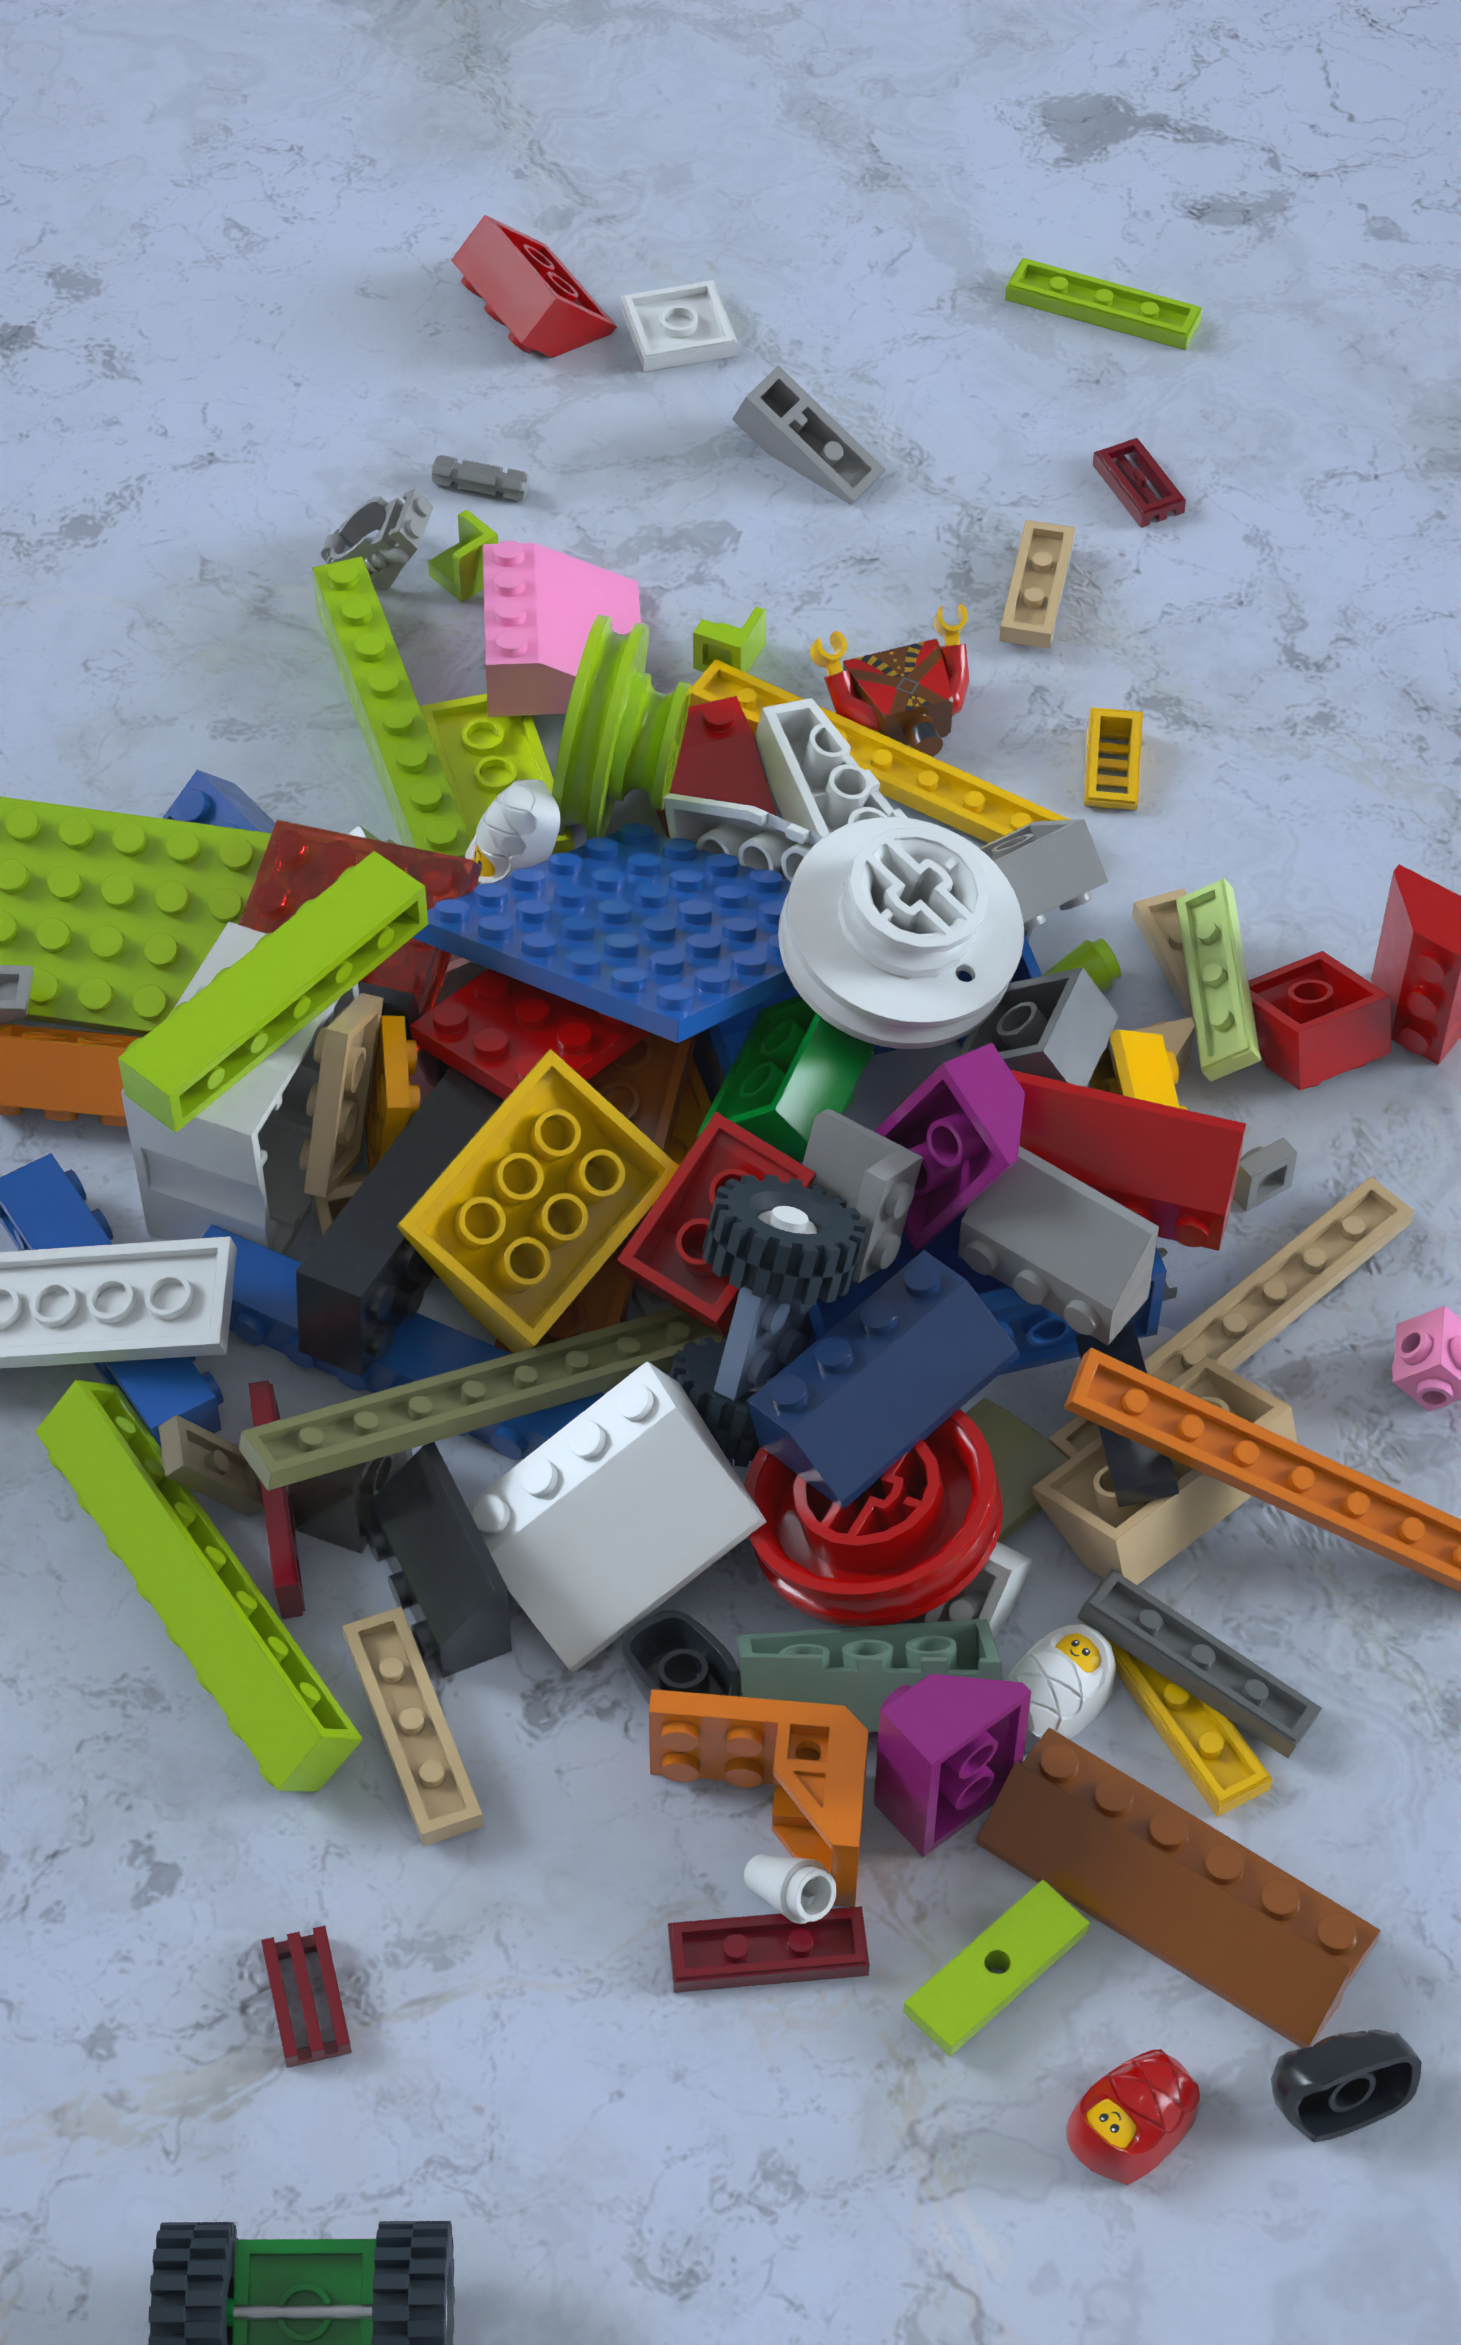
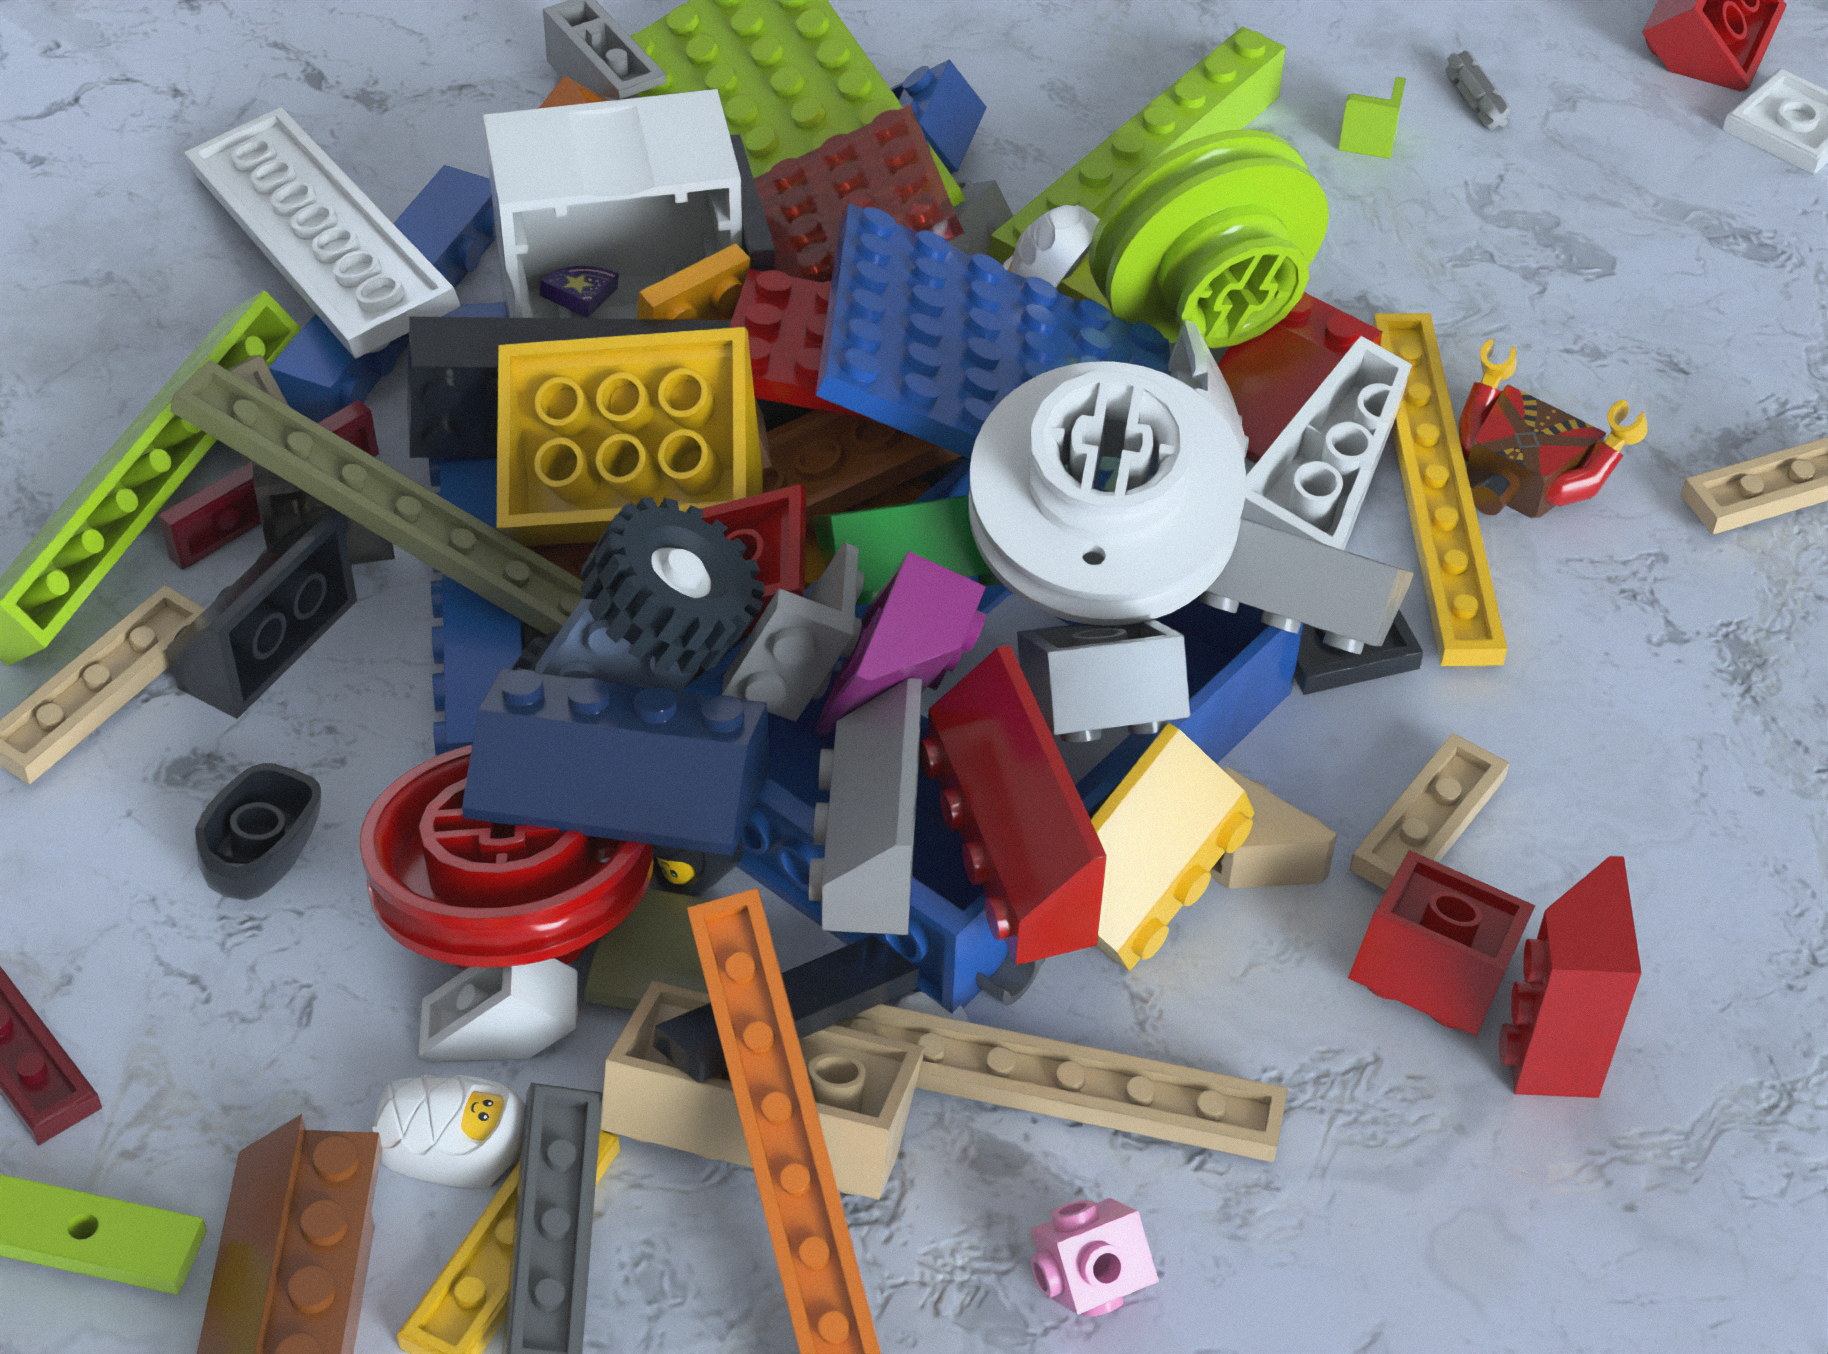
camera: 55 degrees right, 5 degrees down
(273, 991) = (648, 133): lime brick -> none
(341, 1095) = (643, 244): tan plate -> none
(398, 538) = (1333, 60): light grey piece -> none
(539, 622) = (1381, 198): bright pink slope -> none
(614, 1515) = (378, 675): white slope -> none
(729, 643) = (1463, 325): lime panel -> none
(793, 1886) = (70, 1022): white cone -> none
(802, 1748) = (164, 1002): orange bracket -> none
(805, 437) = (1756, 246): light grey slope -> none
(863, 1663) = (347, 987): sand green wedge -> none
(947, 1753) = (244, 1039): magenta slope -> none
(1096, 960) = (1331, 738): lime cone -> none
(1114, 725) = (1648, 607): yellow slope -> none
(1218, 980) = (1402, 832): yellowish green tile -> none
(1264, 1173) = (1213, 998): light grey plate -> none

